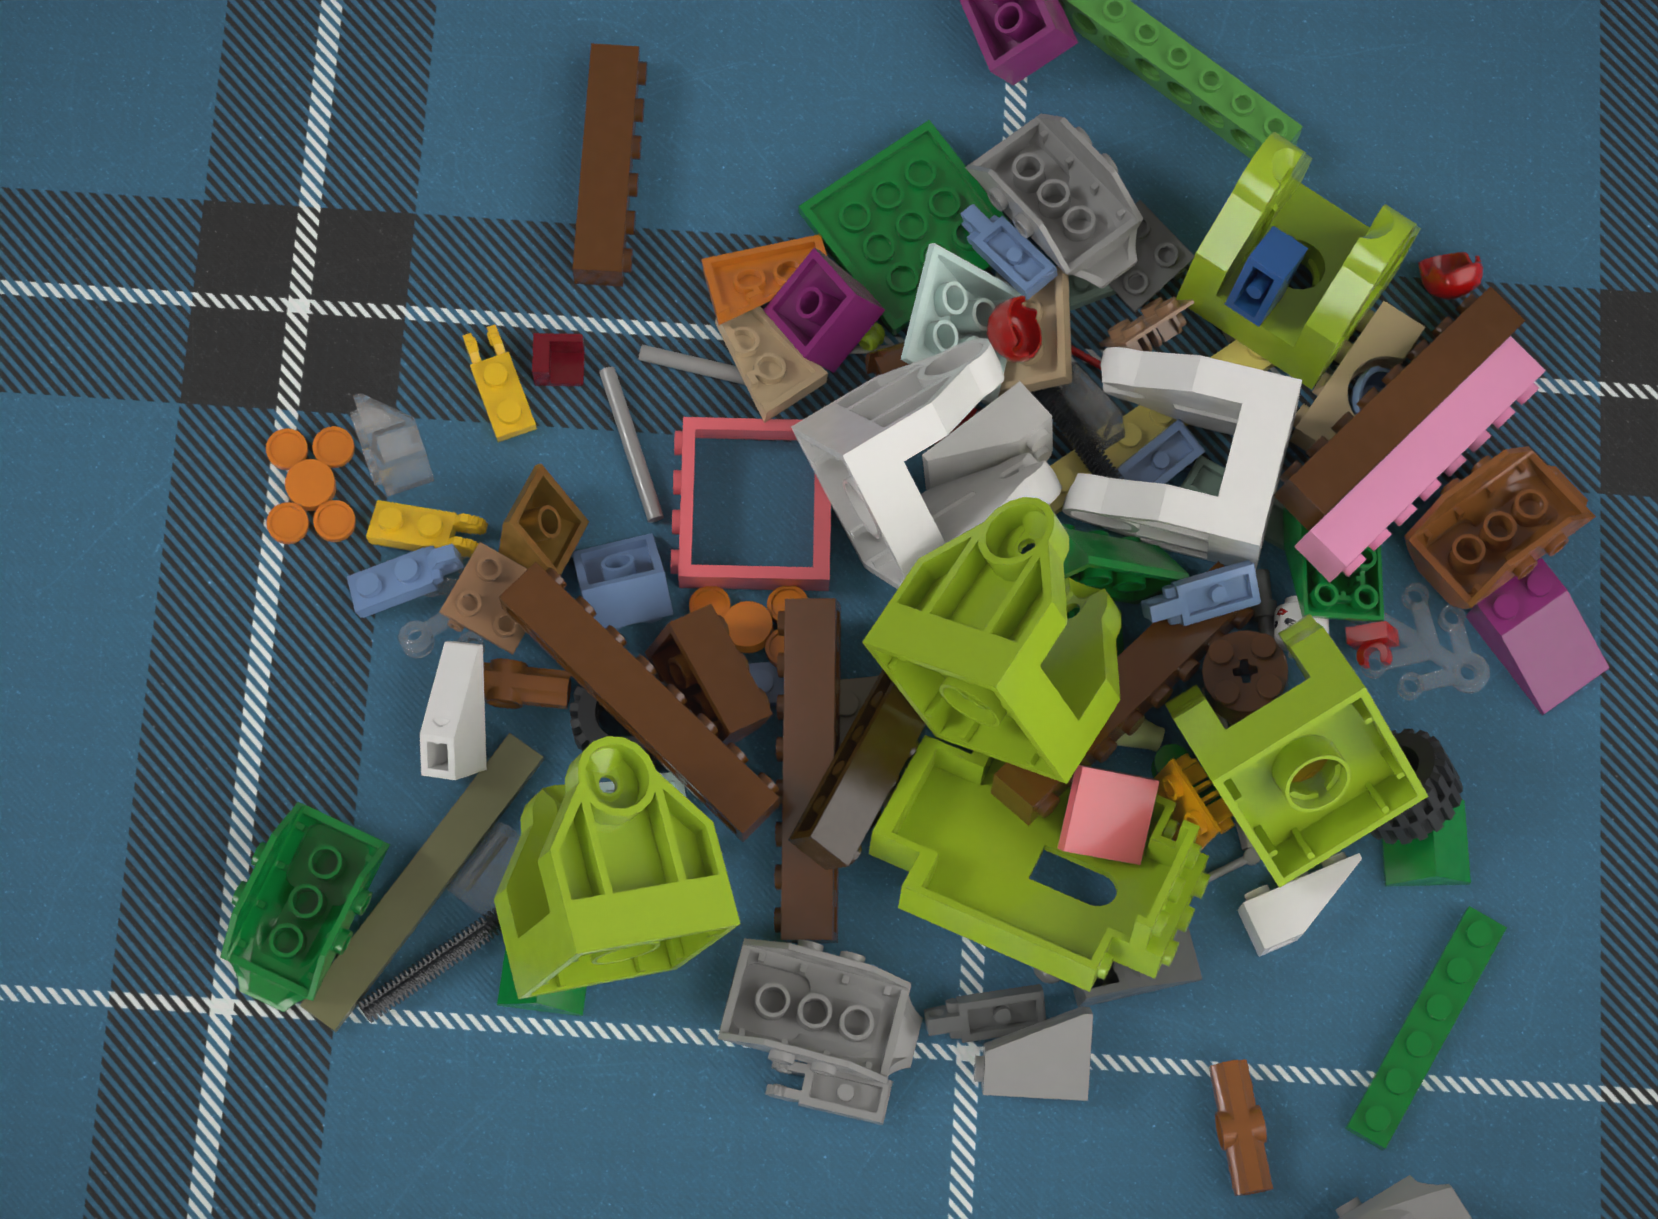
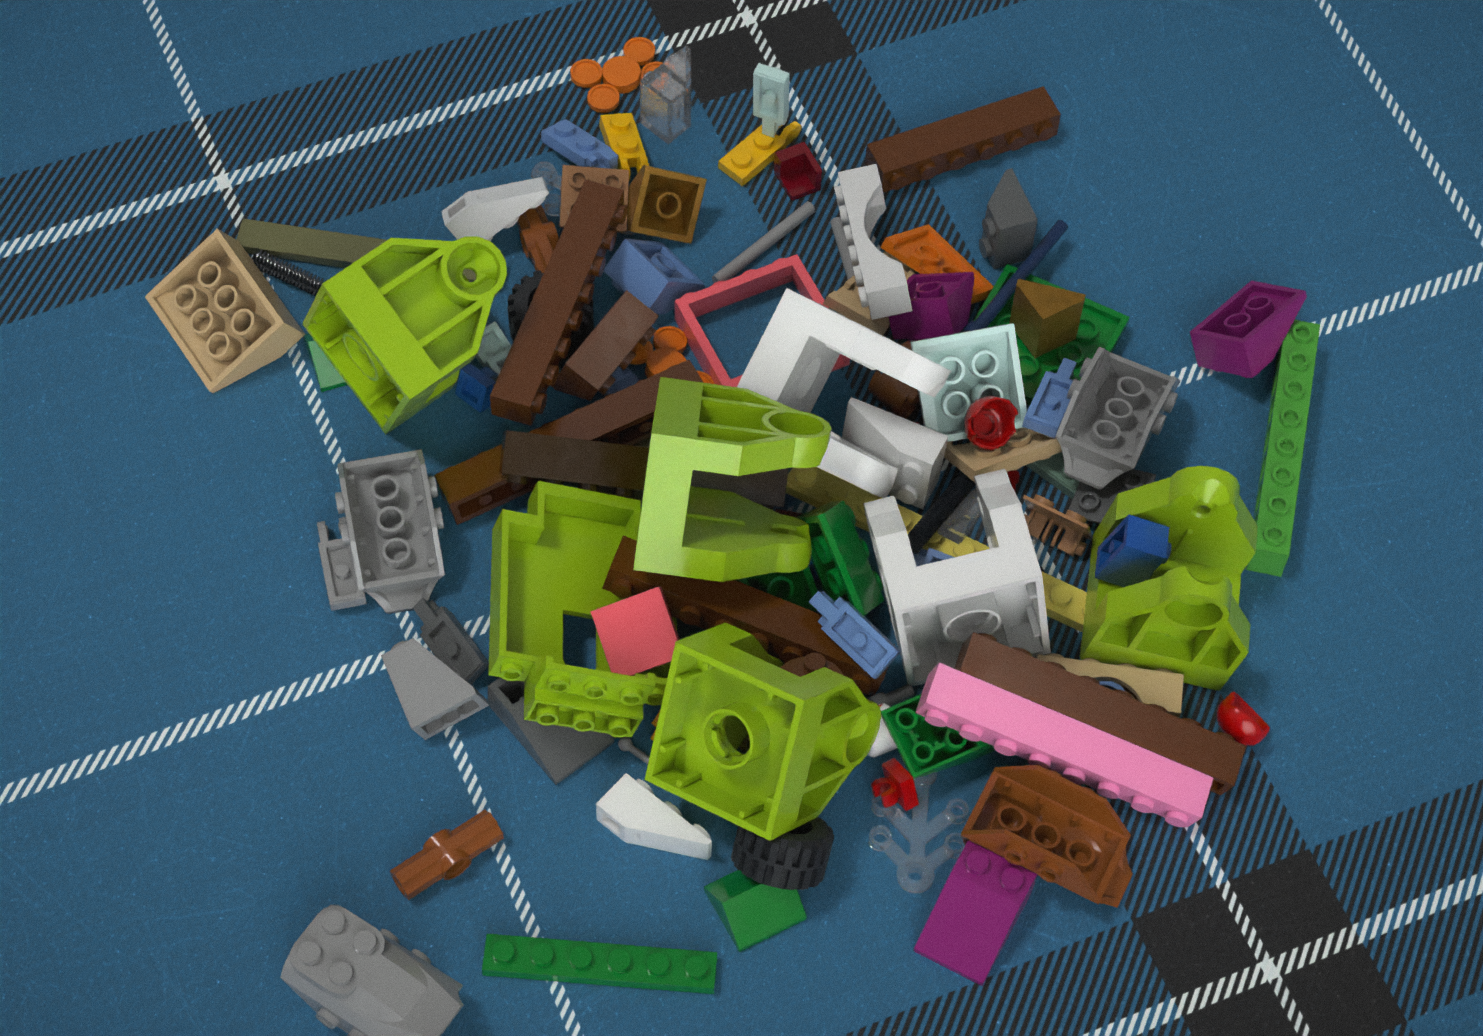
camera: 65 degrees right, 15 degrees down
(299, 905) = (315, 175): green slope -> none
(428, 1082) = (223, 312): none -> tan slope
(483, 338) = (770, 97): none -> light aqua hinge
(752, 177) = (1008, 224): none -> dark grey slope
(792, 346) = (860, 206): none -> white arch
(874, 282) = (1023, 273): none -> dark blue bar
(909, 208) = (1045, 316): none -> pearl gold slope

